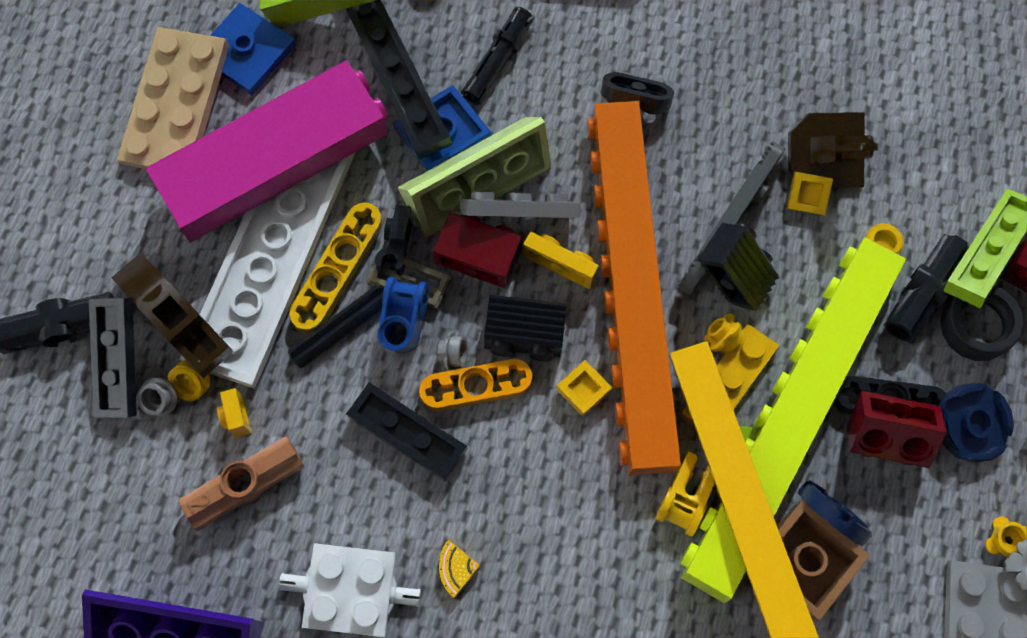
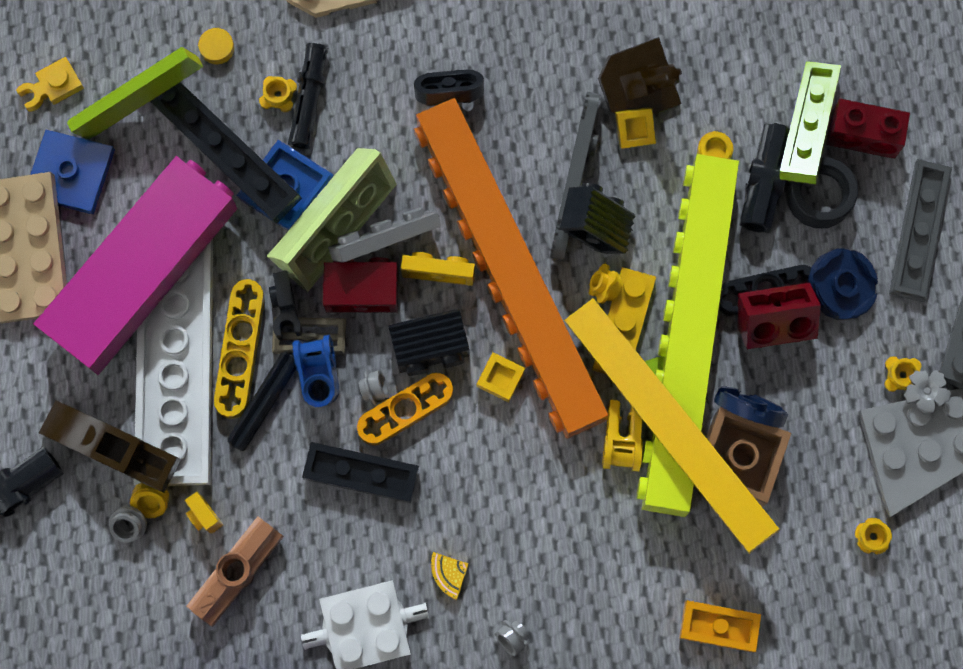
camera: 20 degrees left, 5 degrees up
(112, 358) = (74, 505): black plate -> none
(467, 35) = (278, 84): none -> yellow plate

